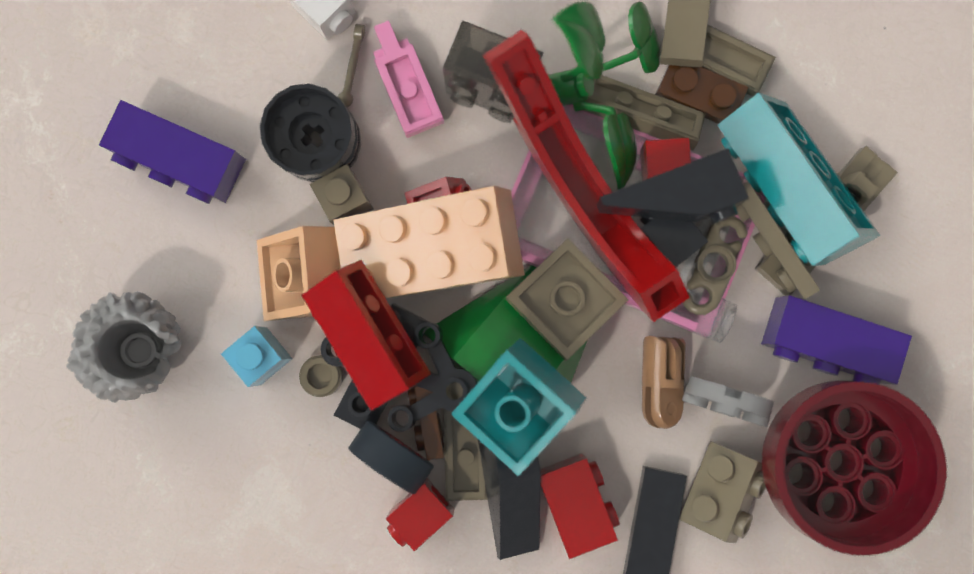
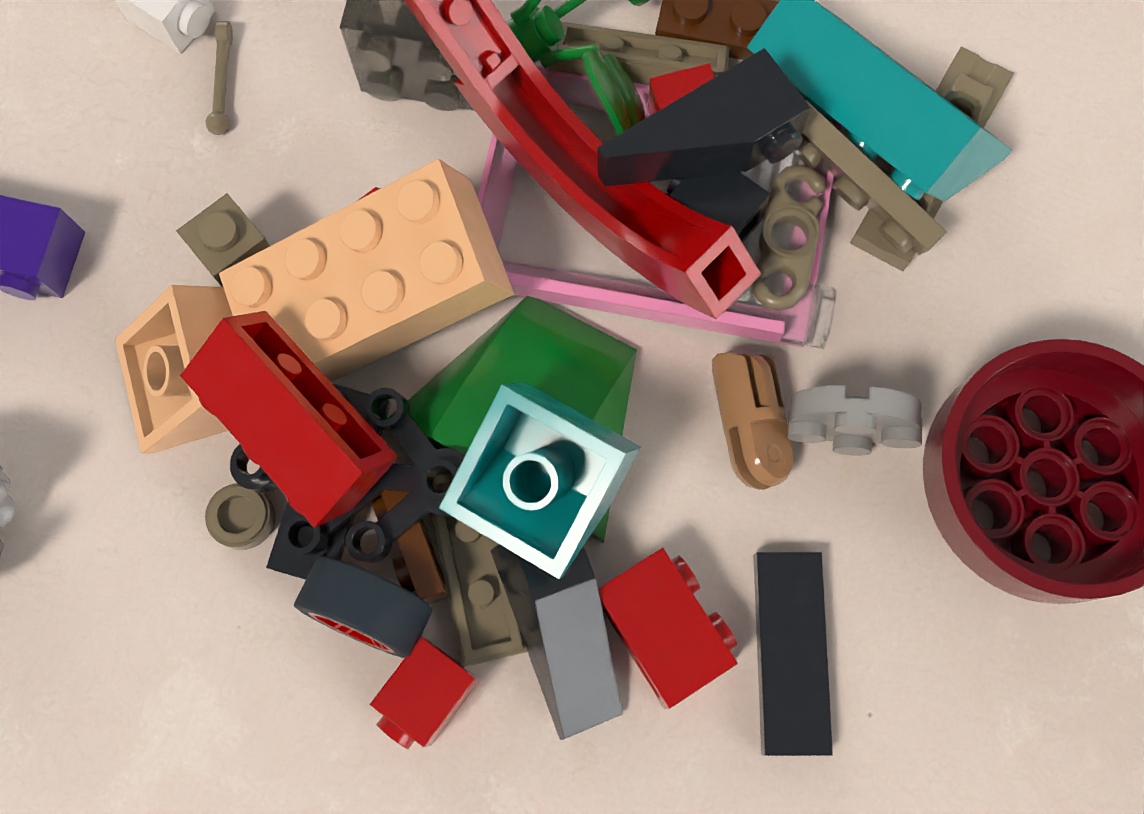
camera: 10 degrees left, 10 degrees down
(256, 356) = (133, 500): medium azure brick -> none
(298, 113) = (151, 140): black wheel -> none
(406, 83) = (300, 83): bright pink hinge -> none
(566, 299) = (583, 320): dark tan plate -> none
(724, 494) = (885, 566): dark tan bracket -> none
(835, 341) = (983, 307): dark purple brick -> none

